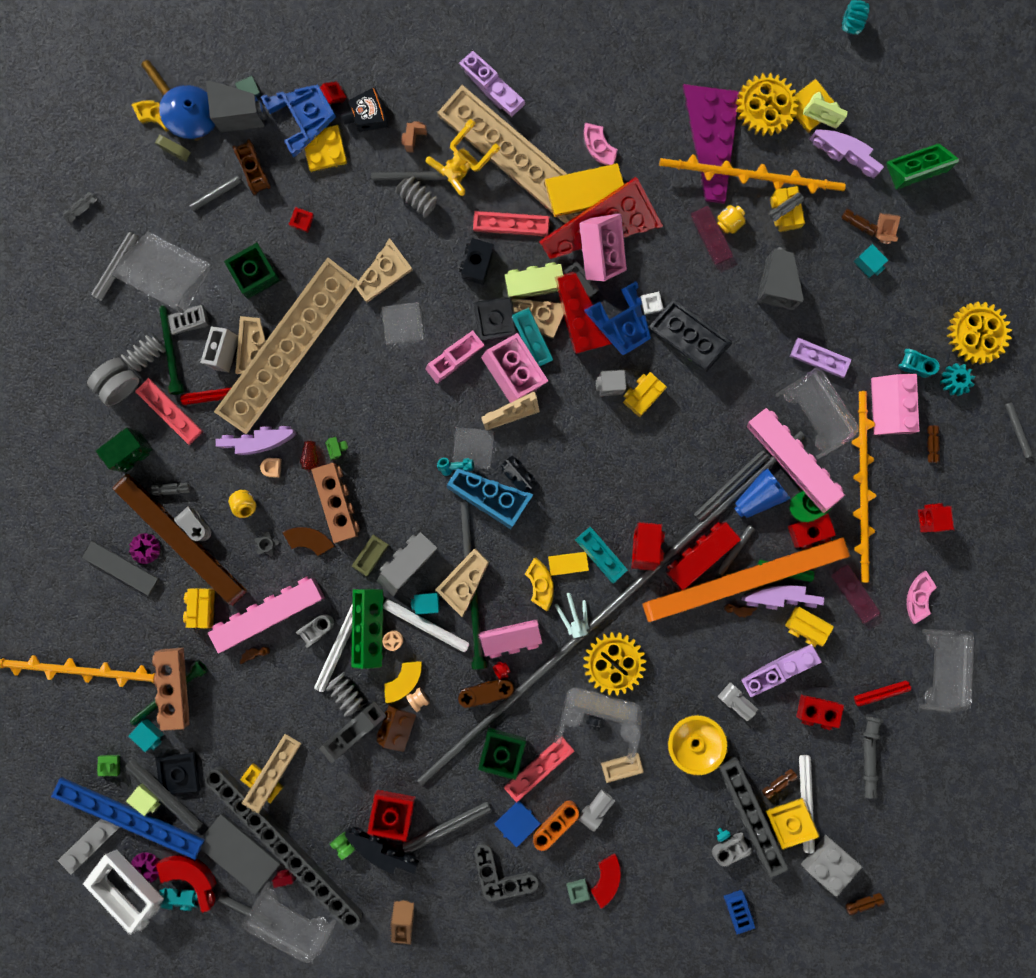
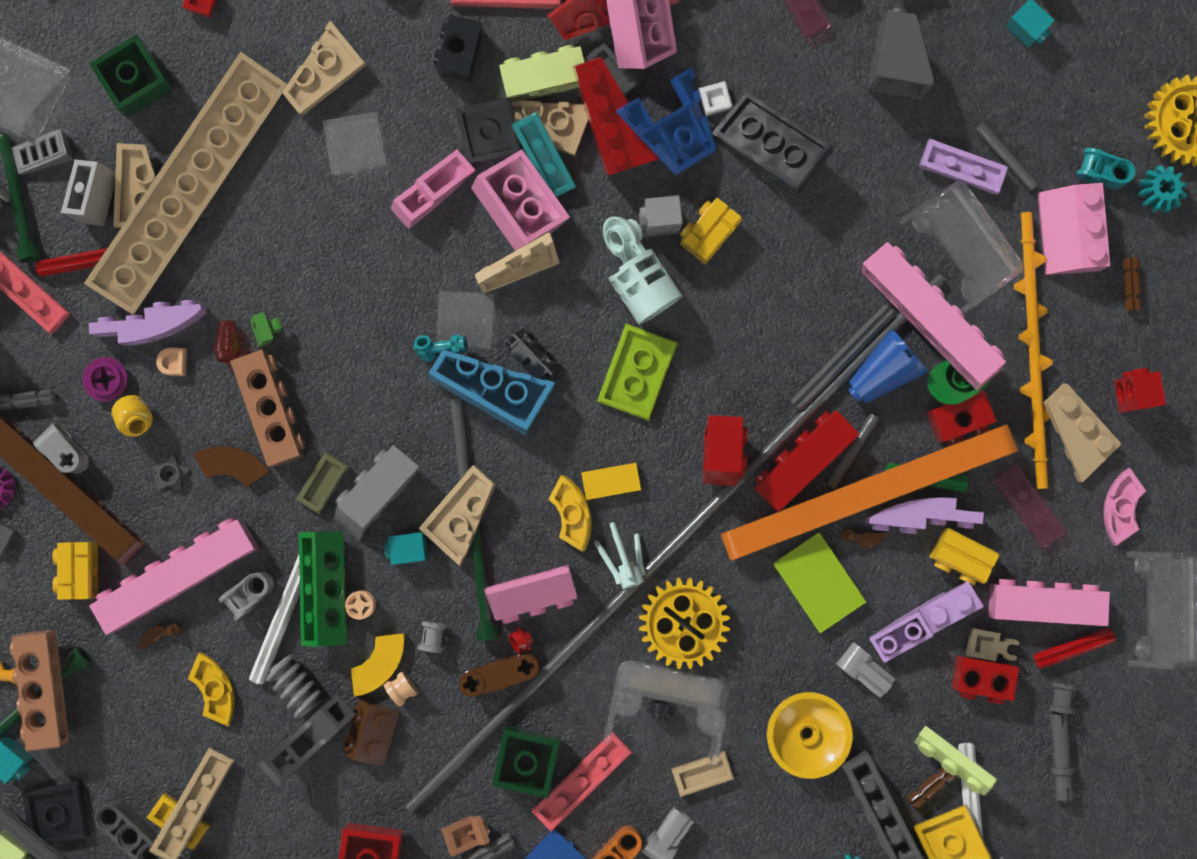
camera: 10 degrees left, 0 degrees up
(218, 472) = (95, 371): none -> magenta gear
(290, 692) = (215, 687): none -> yellow tile
(425, 625) = (408, 581): white axle -> none
(441, 665) = (432, 637): none -> light grey bush
(458, 801) = (465, 834): none -> nougat bracket
(589, 489) = (637, 372): none -> lime tile
(596, 425) = (642, 279): none -> light aqua cylinder
(601, 555) = (658, 466): teal plate -> none
(708, 640) = (819, 582): none -> lime tile
(796, 768) = (954, 761): none -> yellowish green plate
(822, 688) = (987, 645): none -> dark tan plate
(850, 351) = (1006, 156): none -> dark grey bar
(866, 662) = (1048, 604): none -> bright pink brick
(894, 545) = (1081, 431): none -> tan wing

